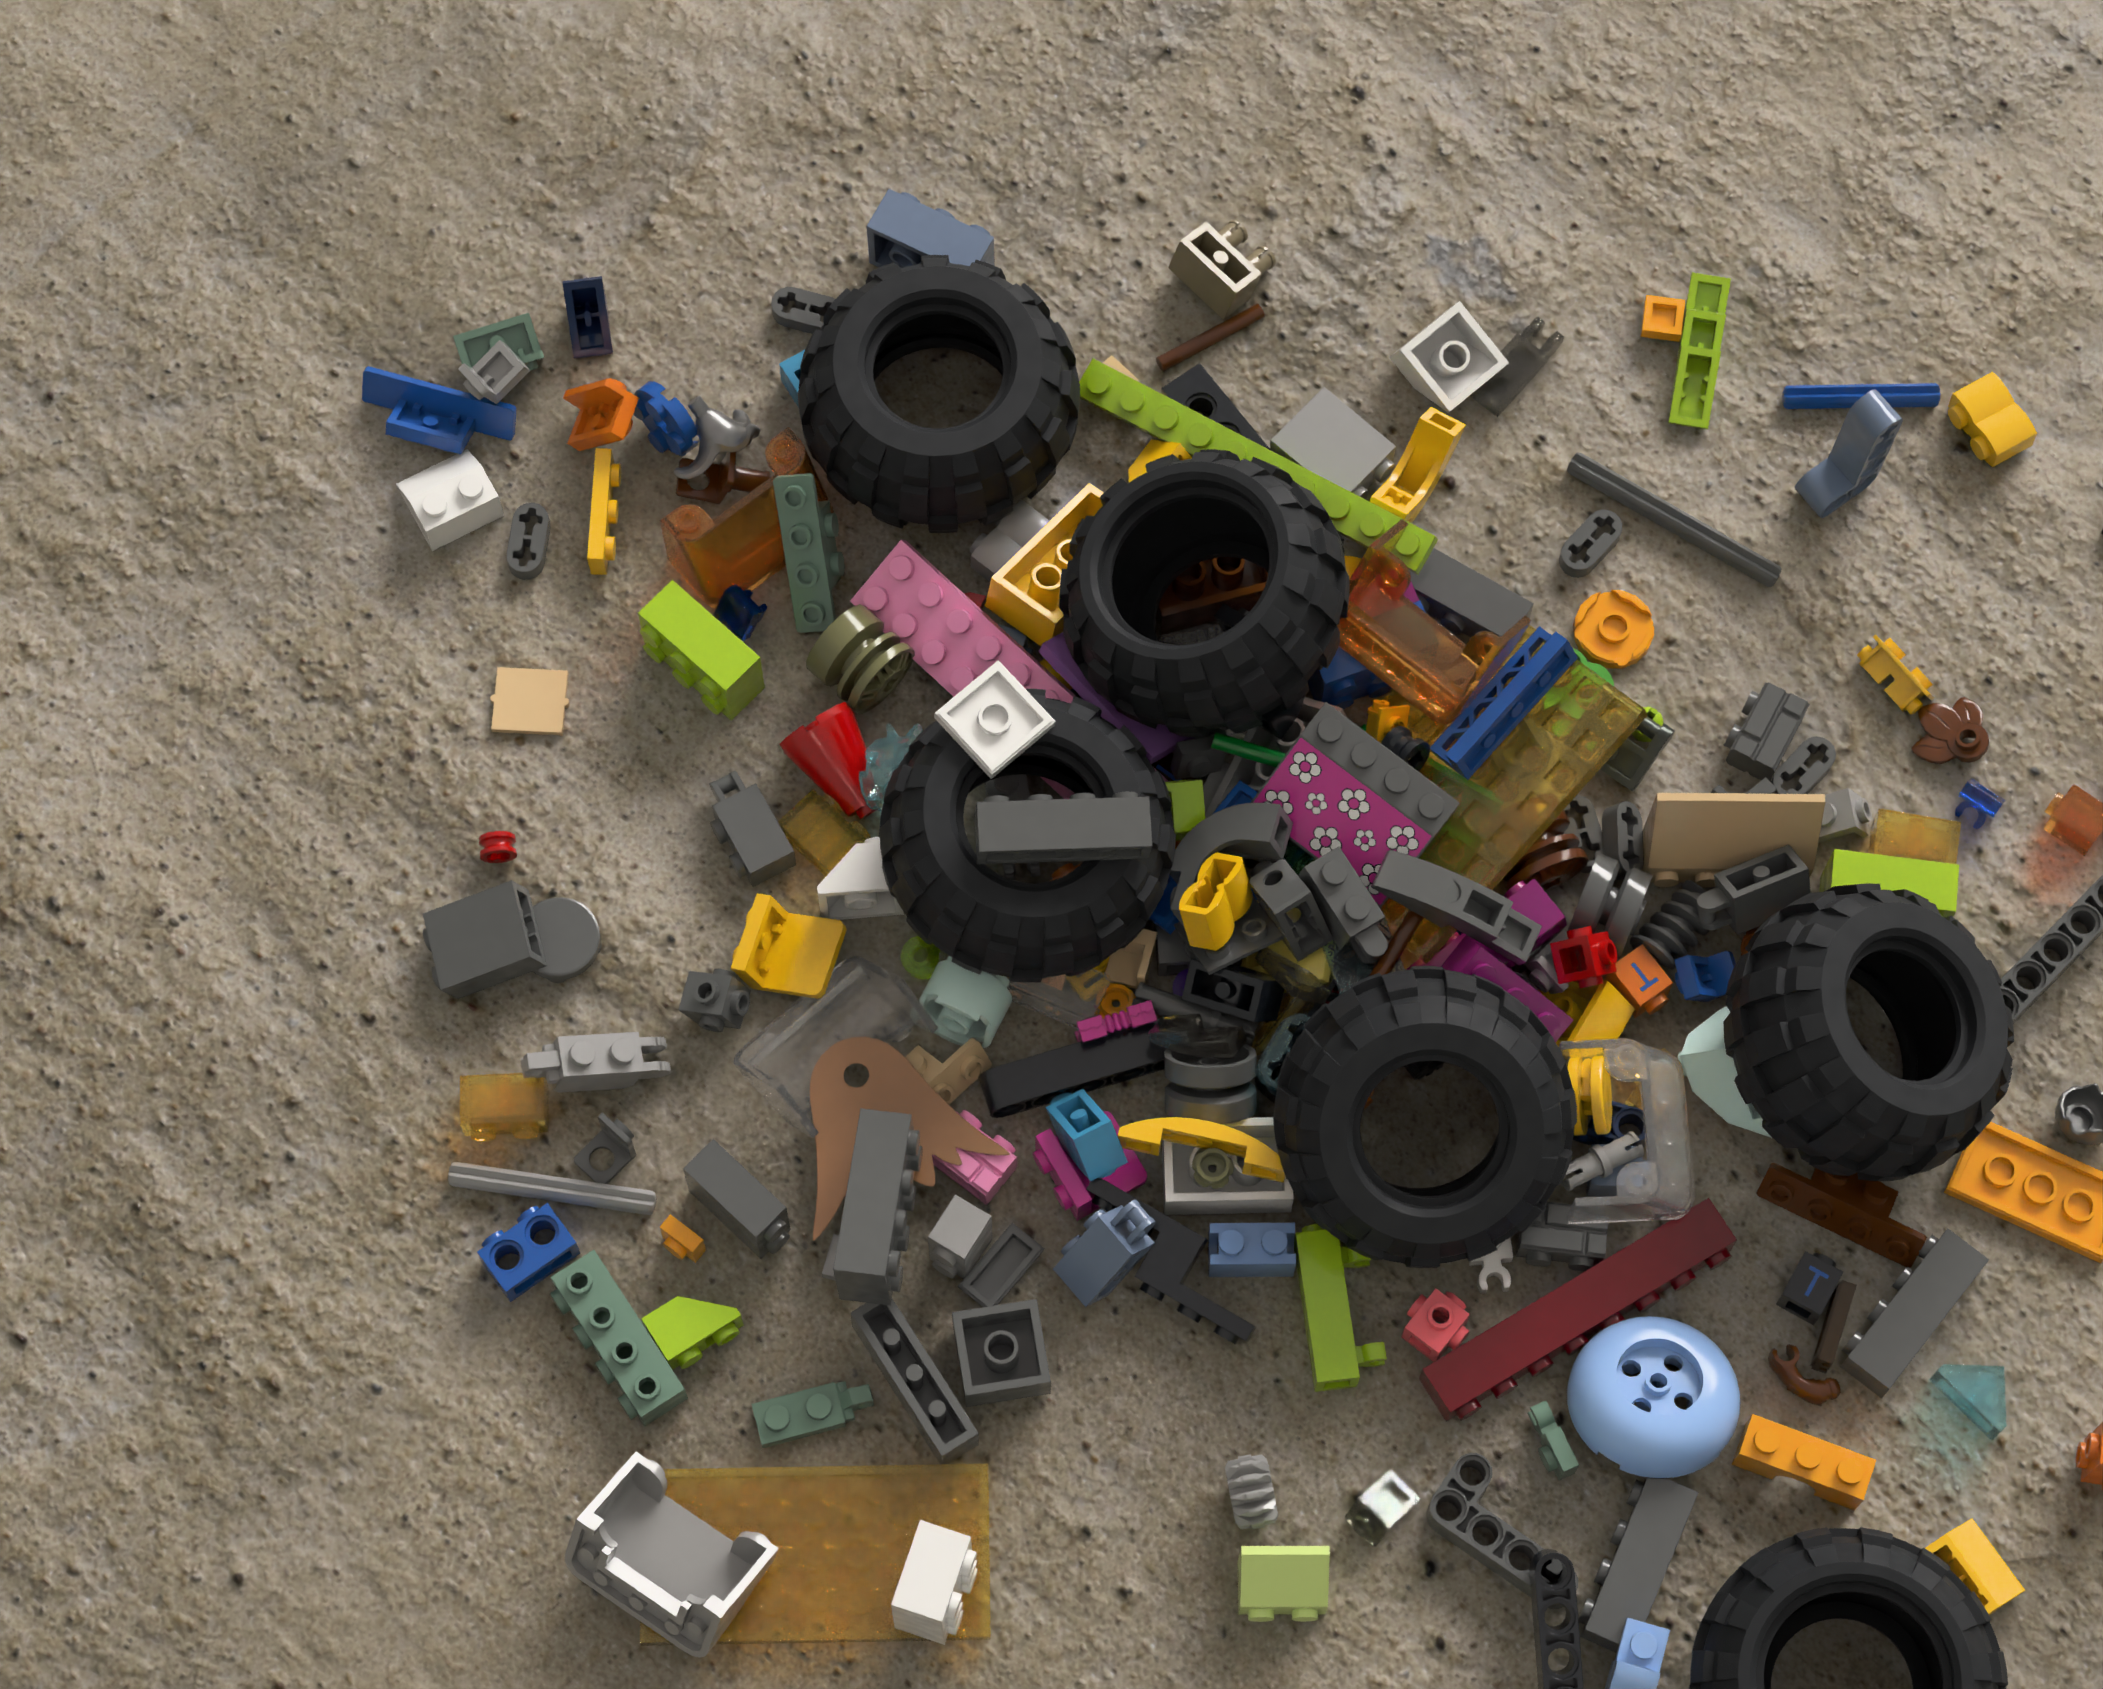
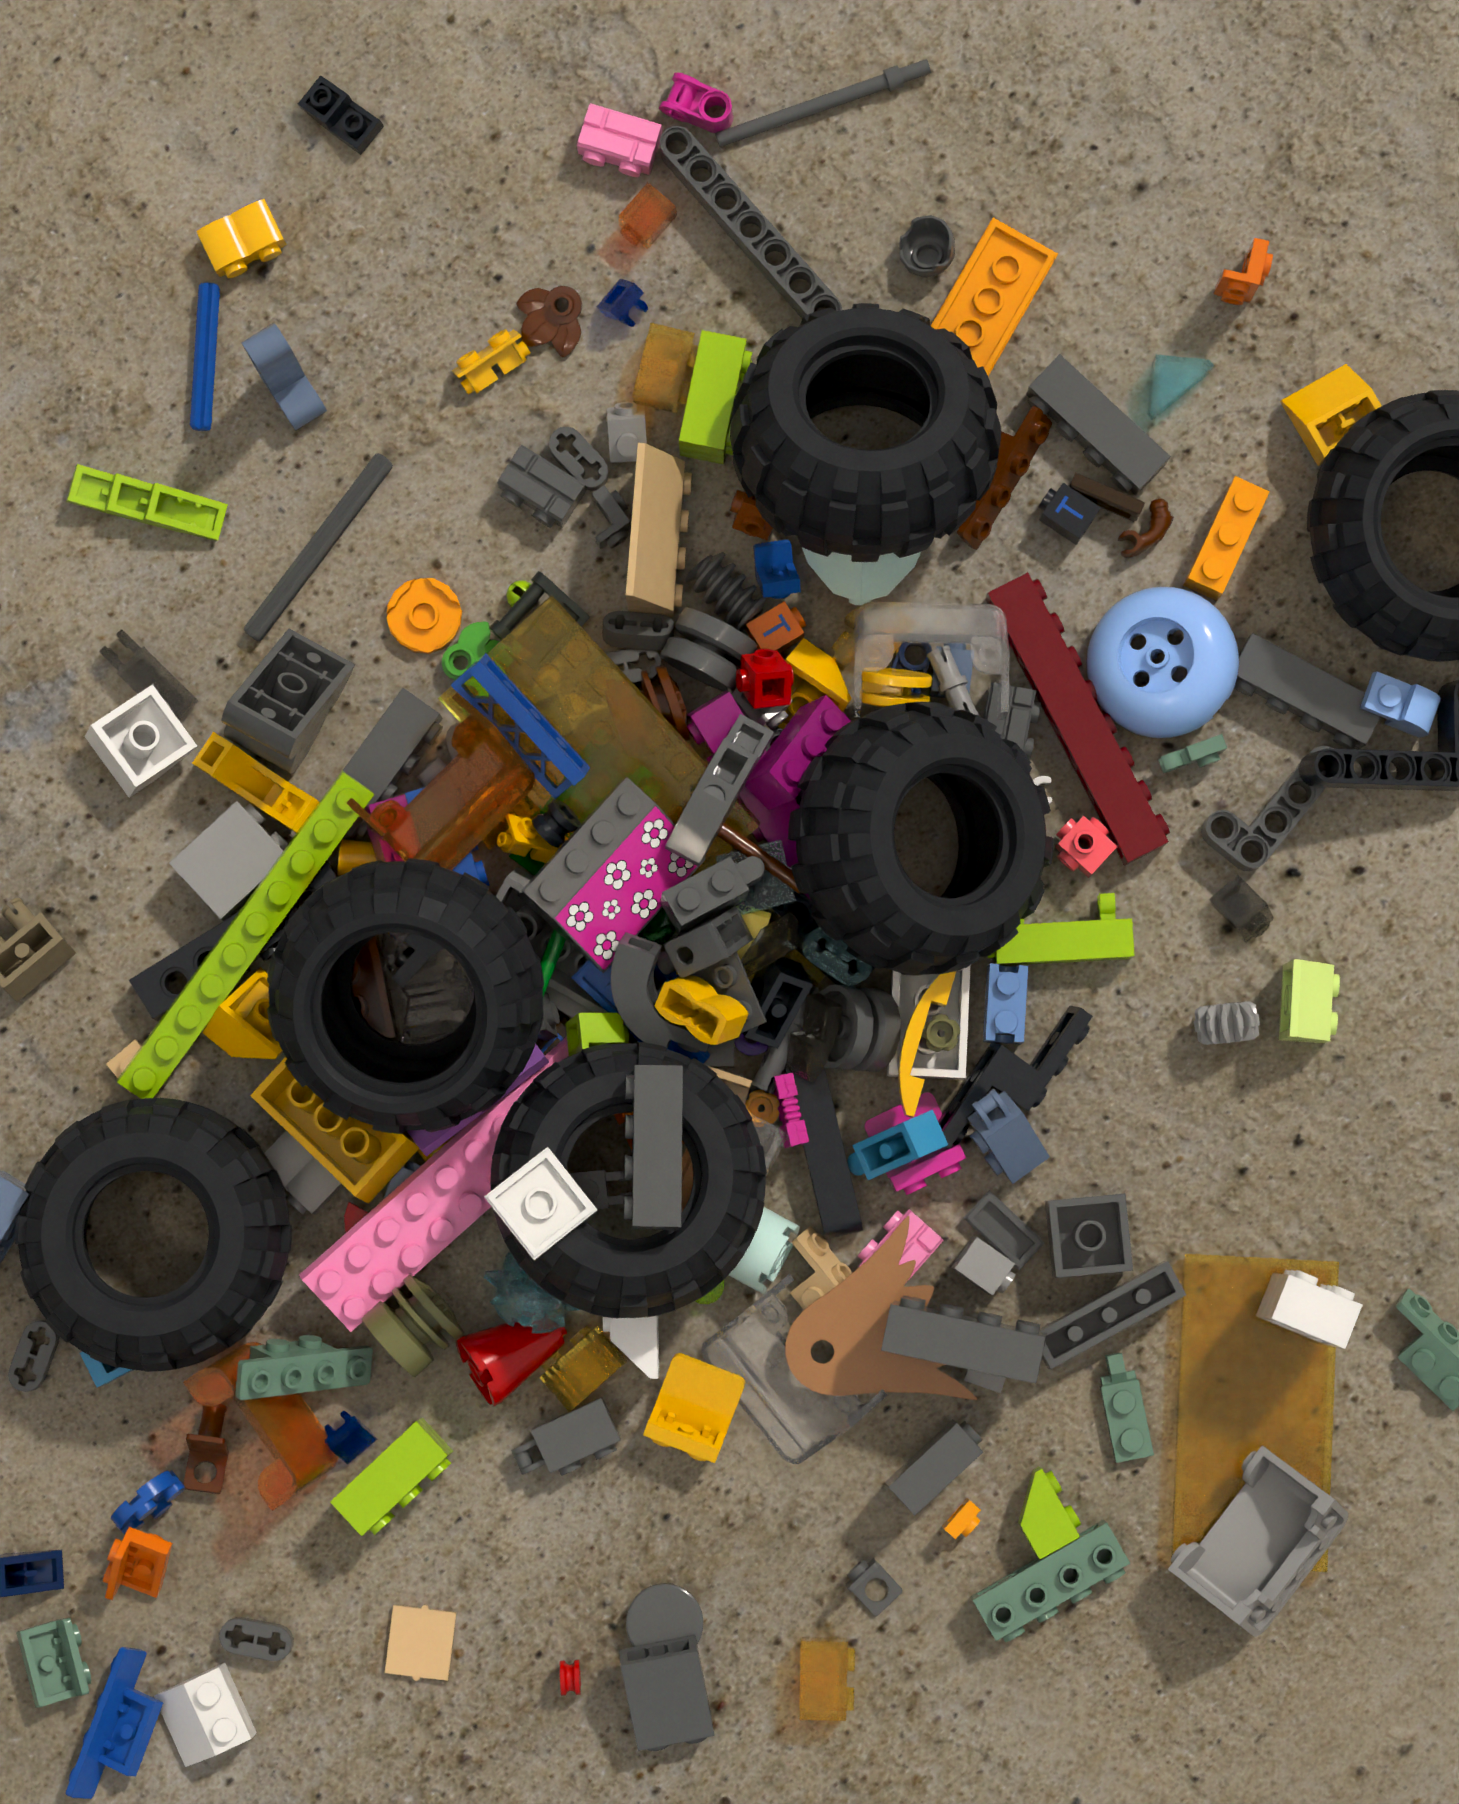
camera: 85 degrees left, 15 degrees up
(494, 373) = (90, 1668): light grey bracket -> none
(535, 1260) = (972, 1656): blue brick -> none
(552, 1188) = (903, 1637): light grey axle -> none
(596, 1061) = (793, 1592): light grey hinge -> none
(603, 511) = (233, 1565): yellow plate -> none
(715, 999) = (738, 1478): dark grey brick -> none
(716, 435) = (171, 1449): flat silver piece -> none
(1210, 337) = (92, 967): reddish brown bar -> none
(1506, 489) = (286, 700): none -> dark grey brick
(1597, 548) = (330, 633): dark grey beam -> none
(1662, 318) = (109, 533): light orange plate -> none
(1754, 891) = (710, 516): dark grey brick -> none

